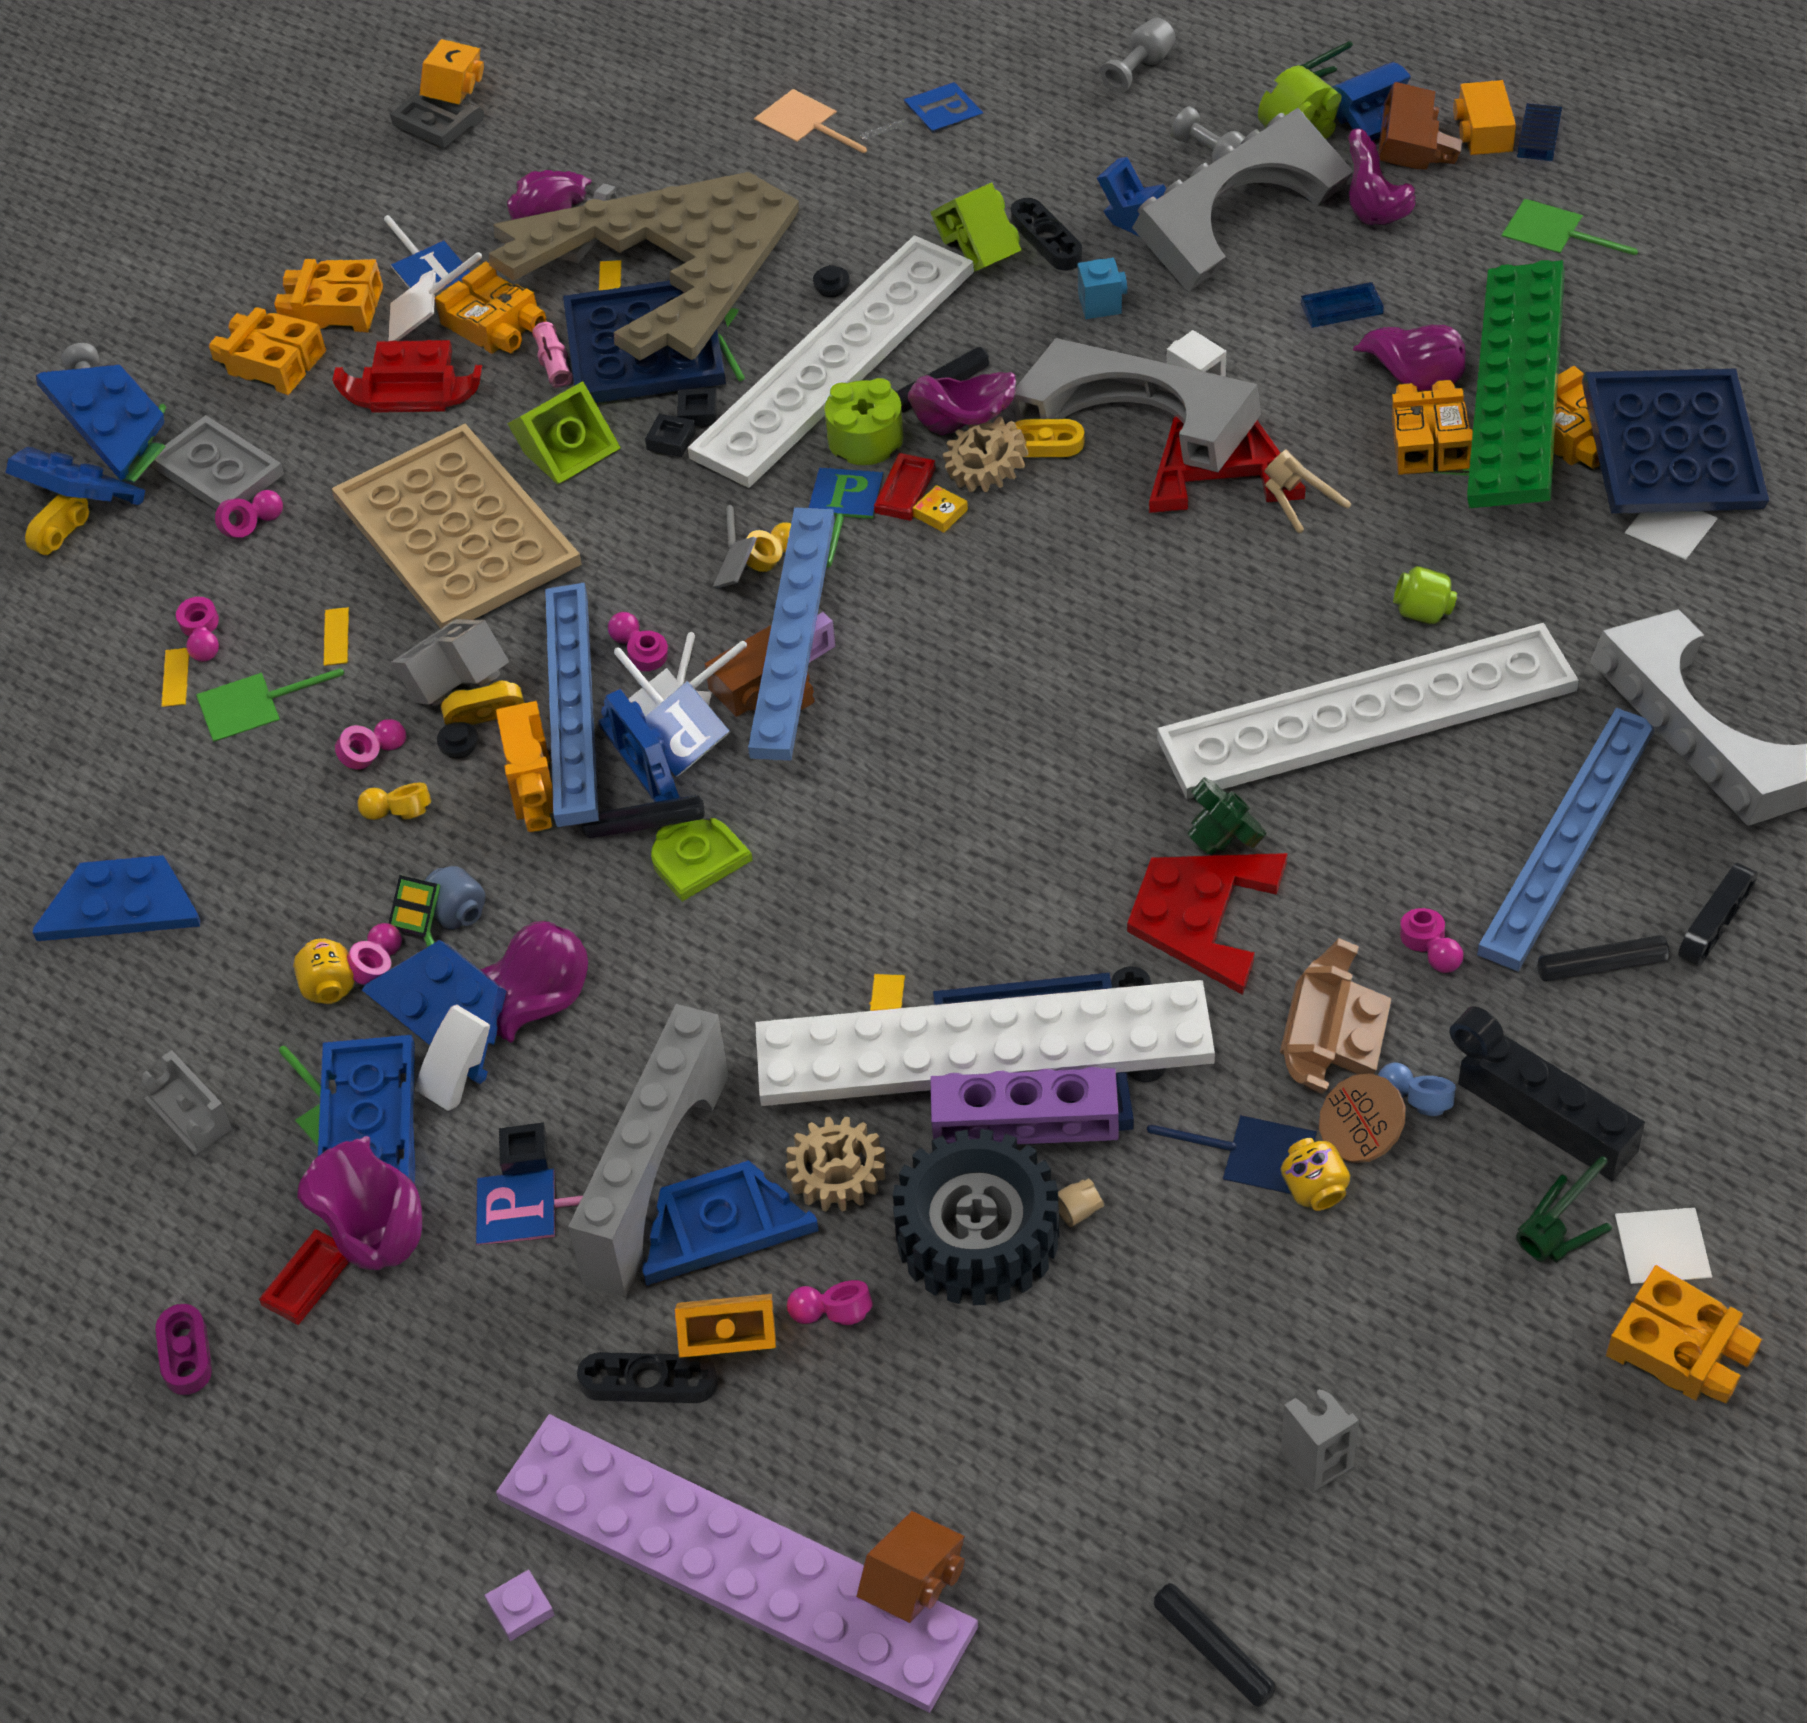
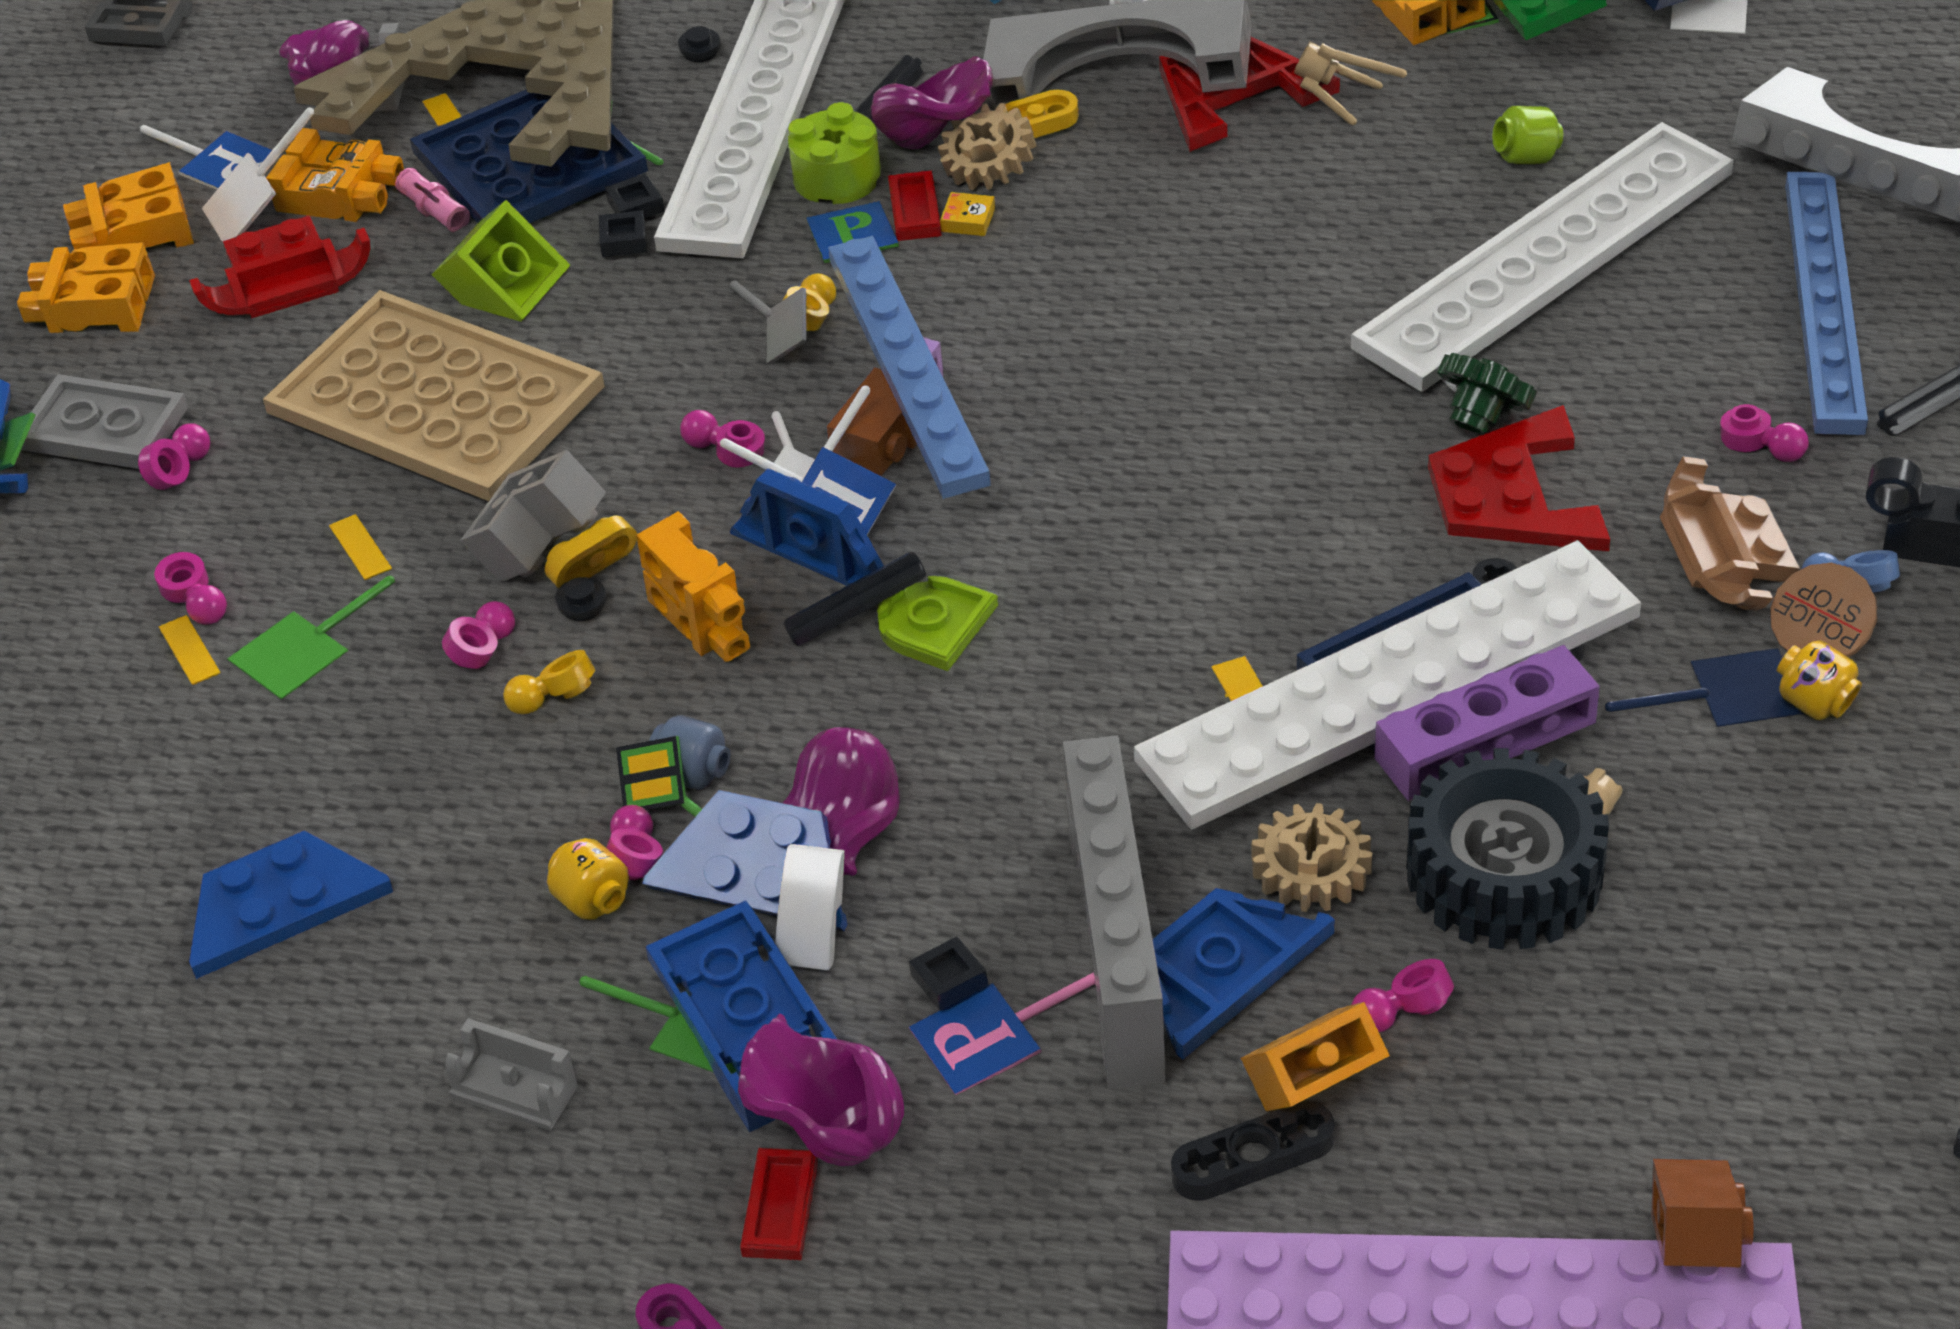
camera: 25 degrees left, 5 degrees down
(571, 706) = (673, 487): medium blue plate -> none

